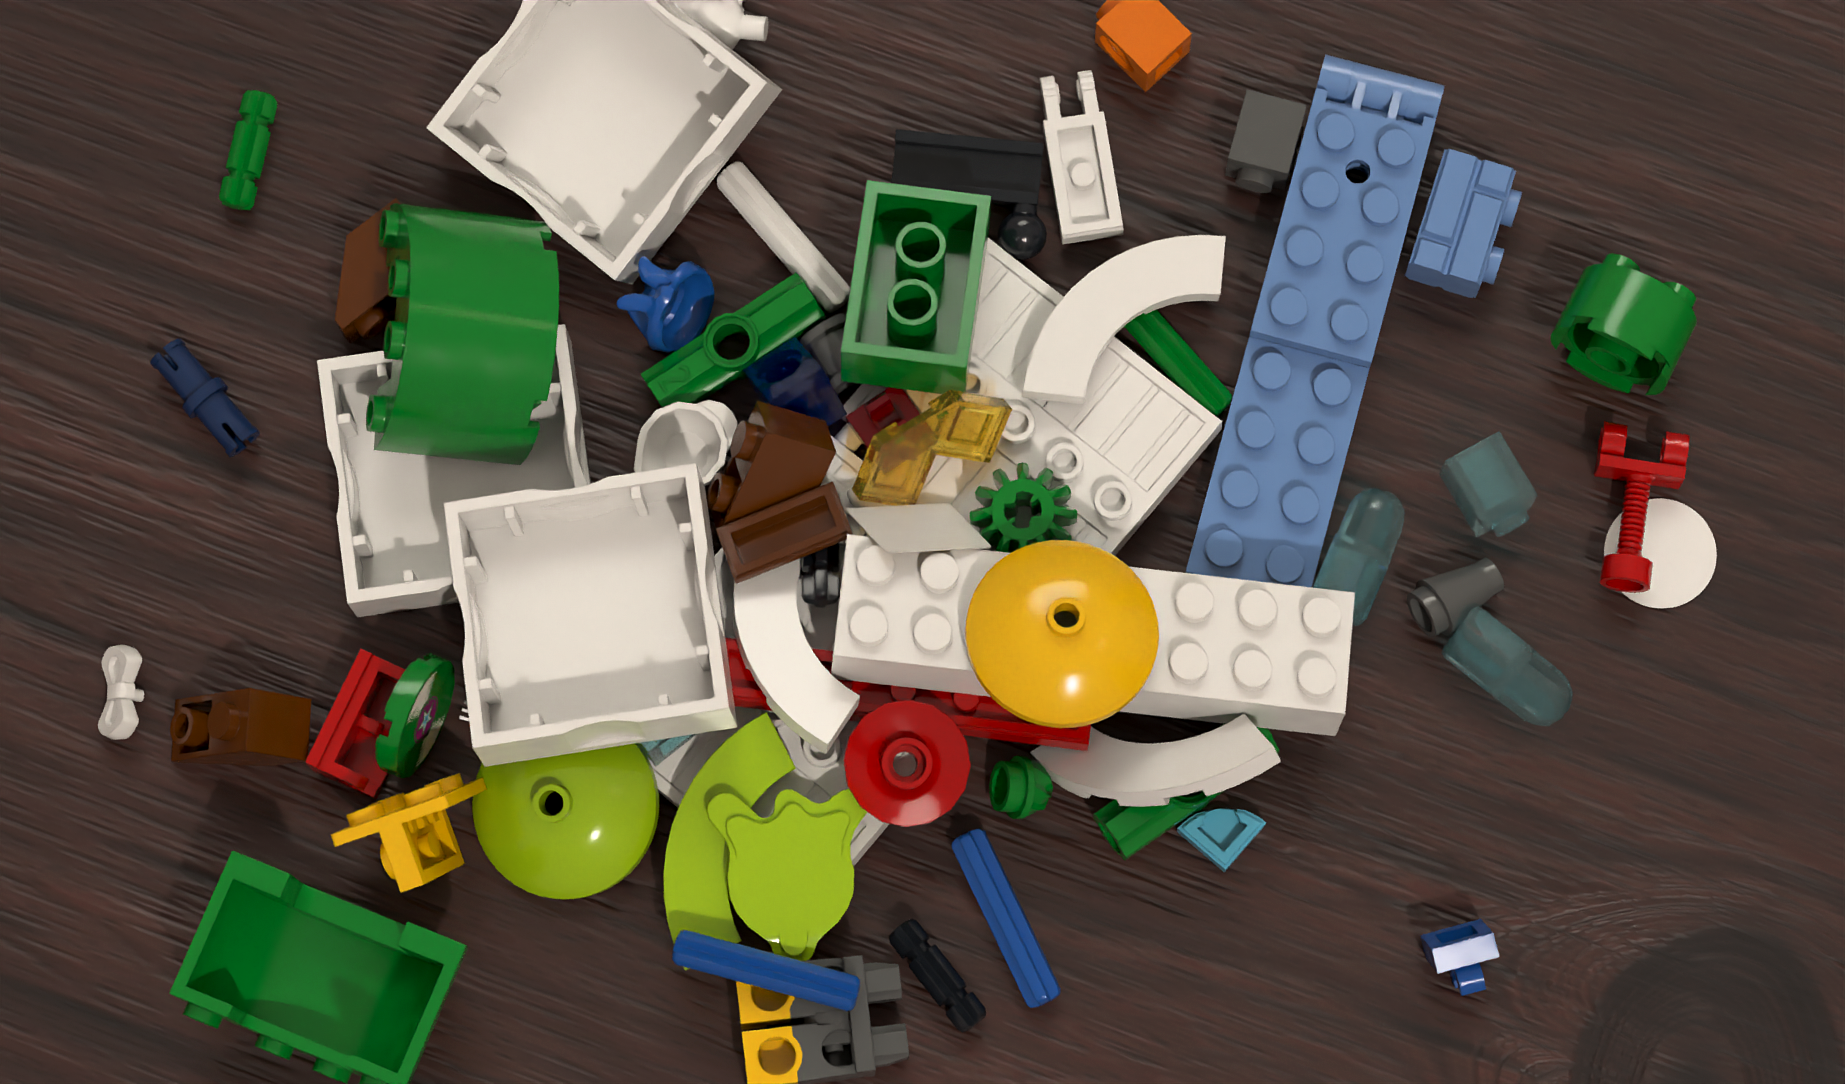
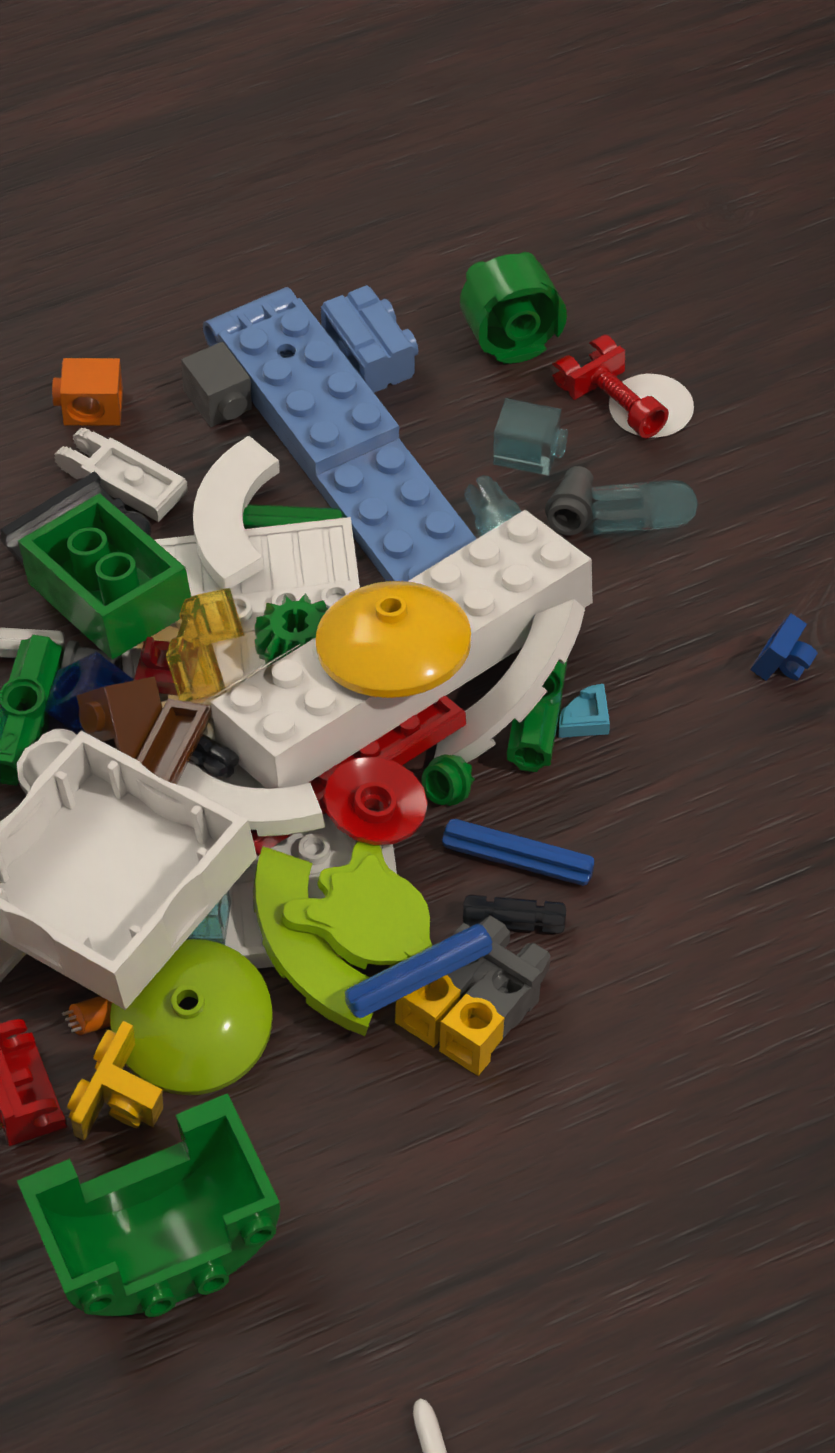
camera: 50 degrees left, 25 degrees down
(417, 715) = (46, 1036): green tile -> none

